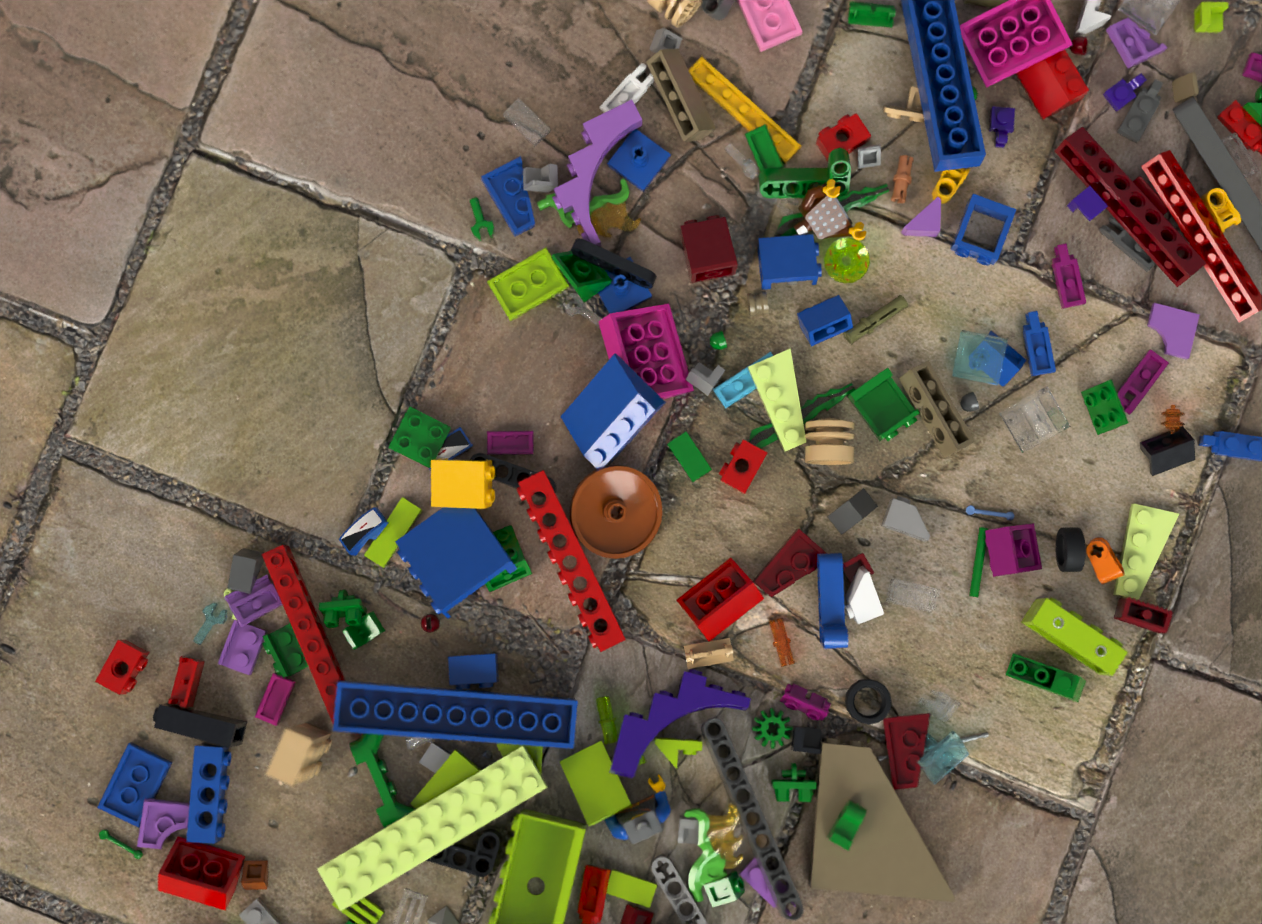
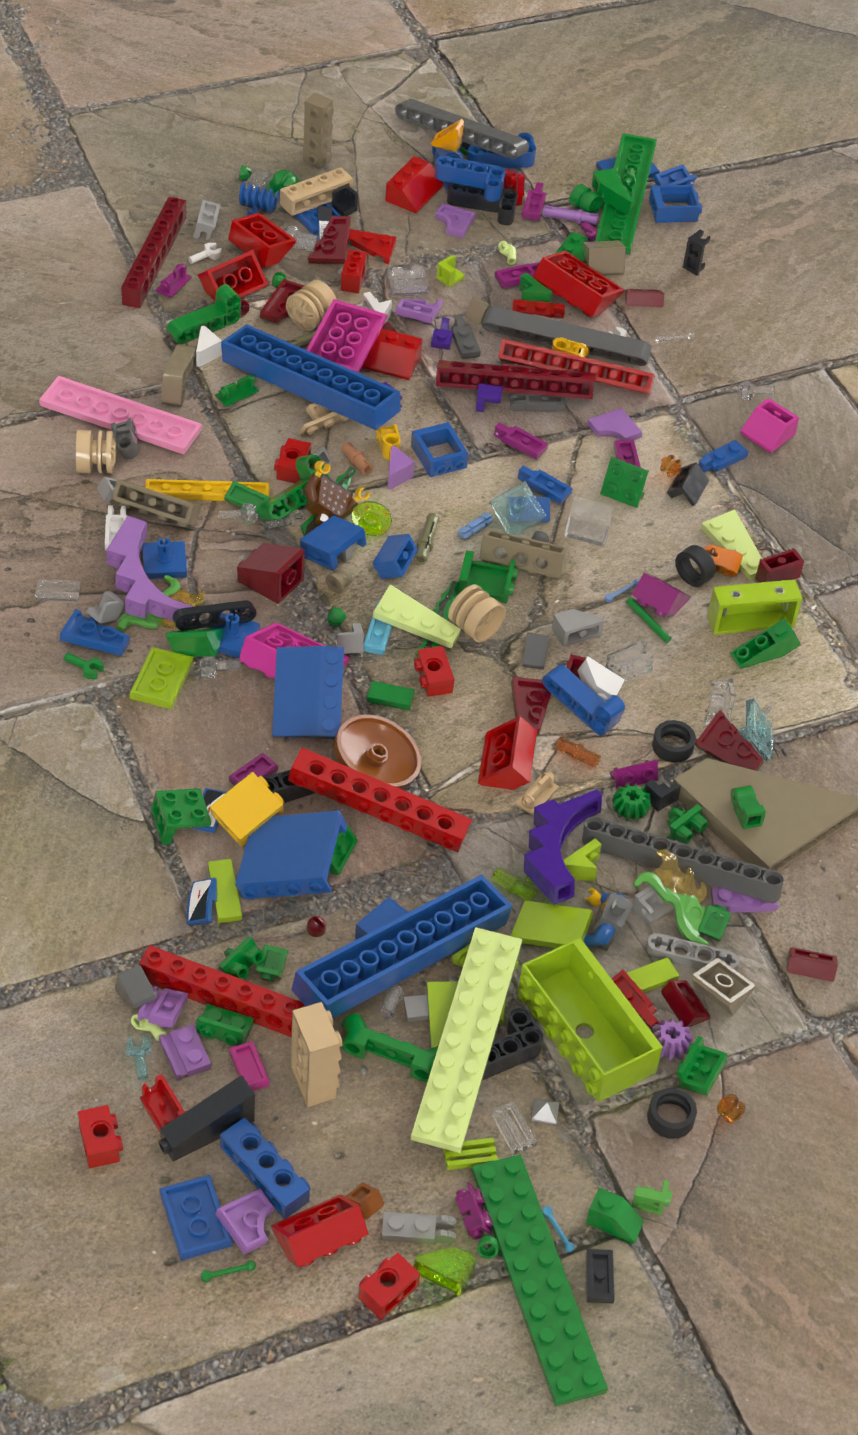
camera: 55 degrees left, 35 degrees down
(932, 339) = (475, 526): none -> medium blue axle

